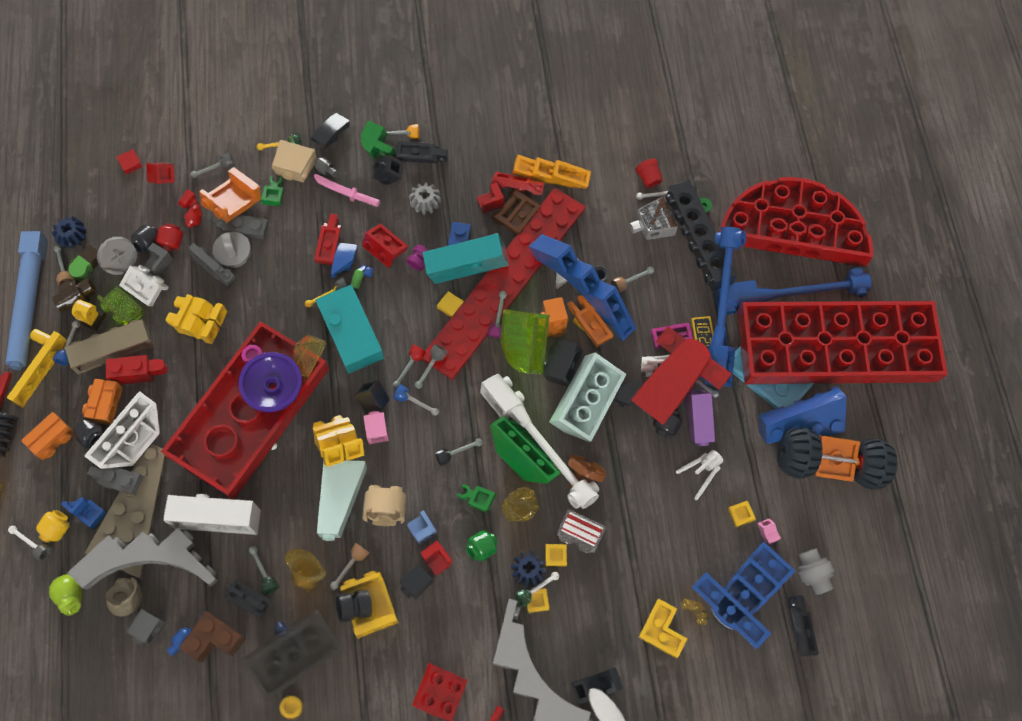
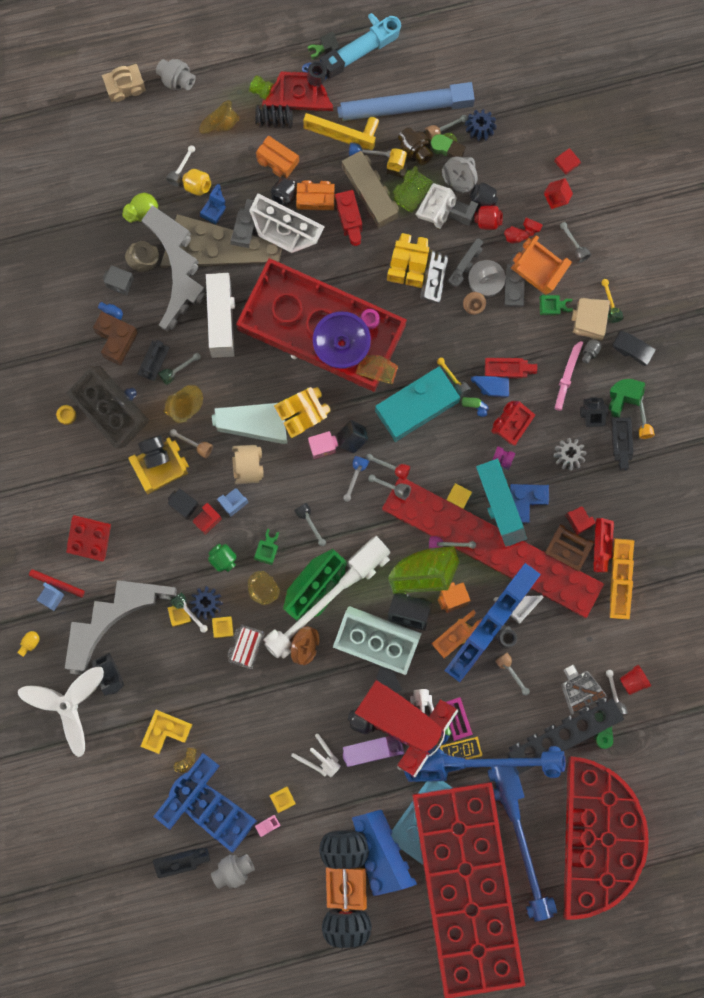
camera: 85 degrees right, 10 degrees up
(214, 294) = (434, 277): none -> hinge
(255, 263) = (474, 303): none -> medium nougat hat

